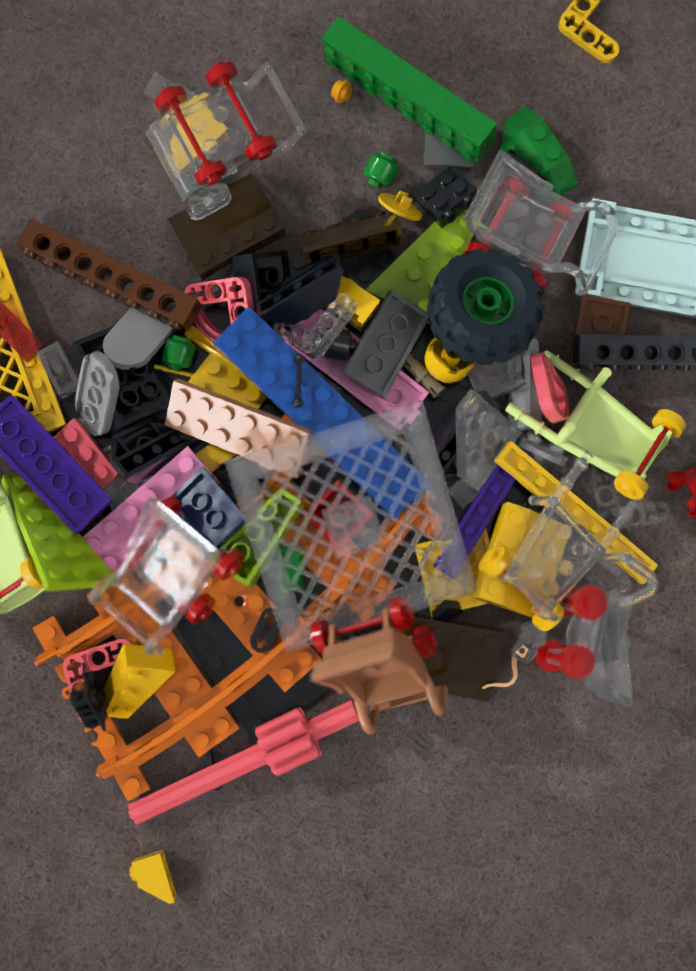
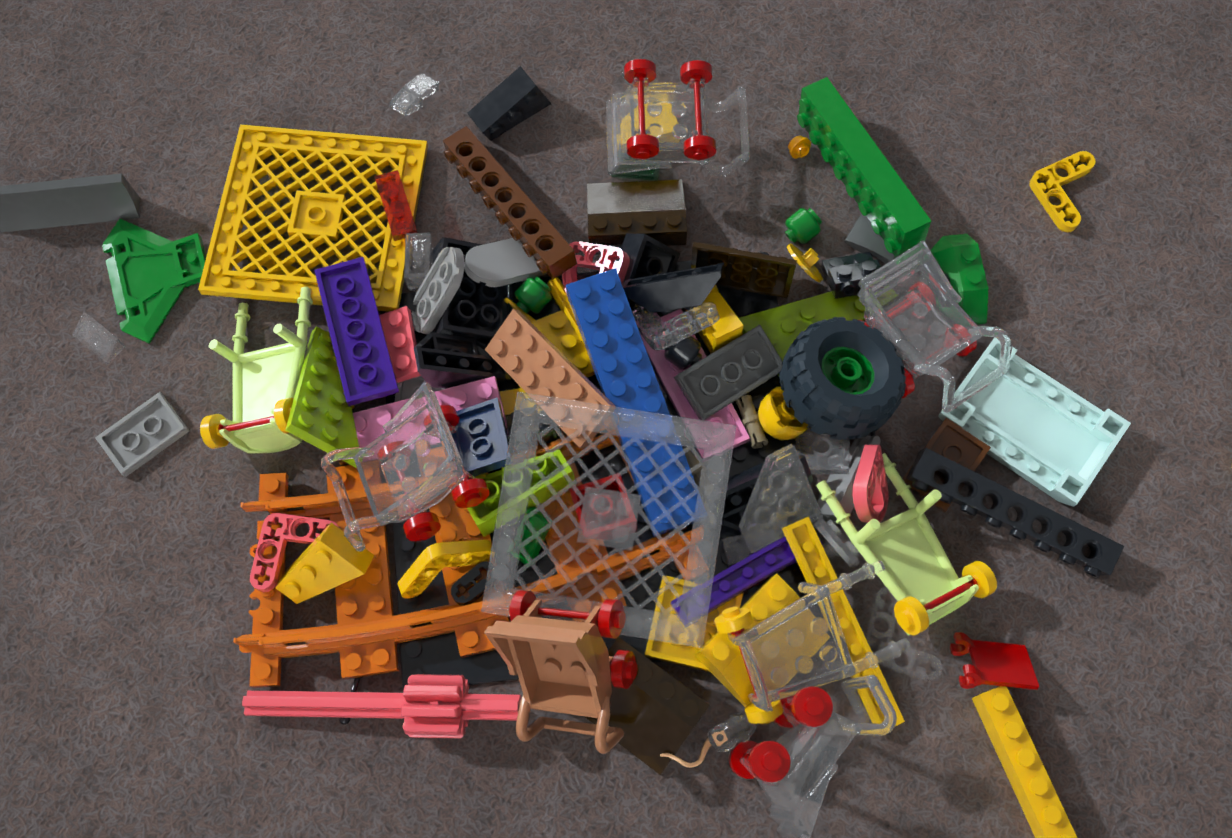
camera: 30 degrees right, 15 degrees down
(56, 177) = (508, 105): none -> black wedge
(89, 701) = (268, 561): black hinge -> none
(154, 876) = (231, 777): yellow slope -> none
(208, 201) = (630, 182): clear plate -> none
(232, 626) = (437, 557): none -> yellow beam
(299, 360) = (637, 337): black hinge -> none
(447, 610) = (663, 653): black tile -> none

